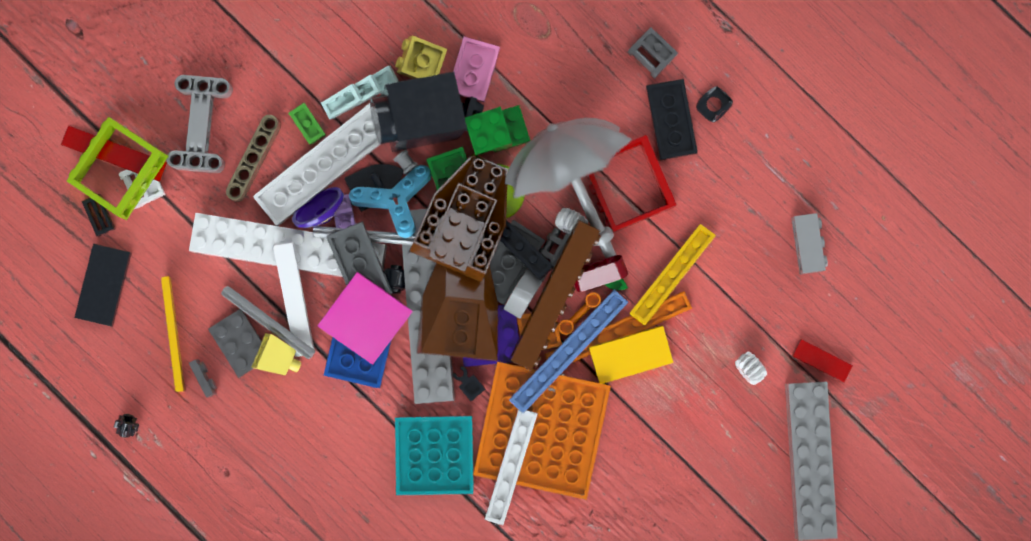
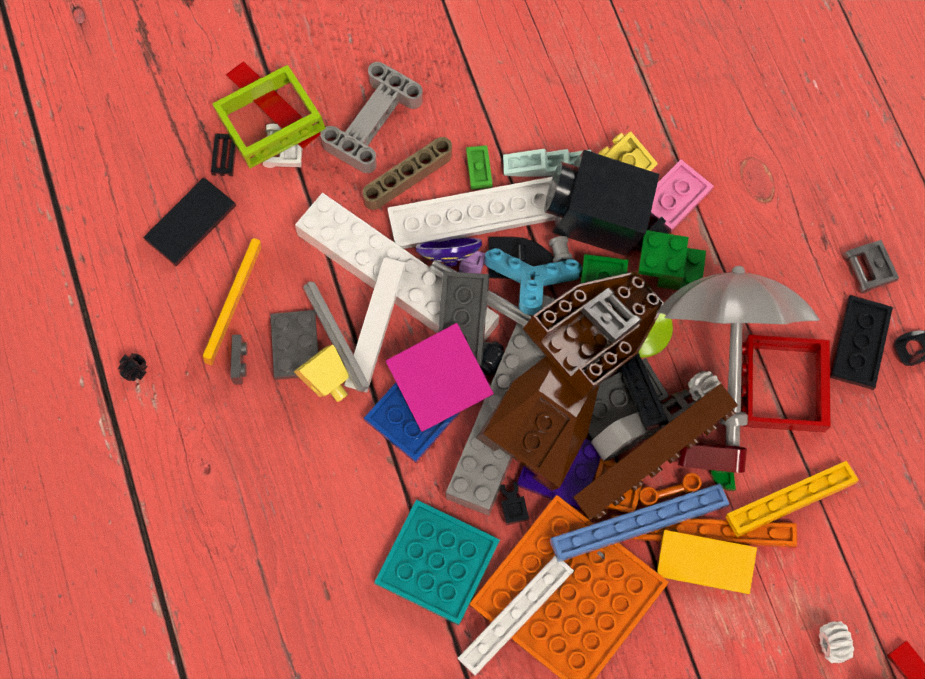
camera: 20 degrees right, 15 degrees down
(469, 211) = (607, 319): none -> flat silver plate

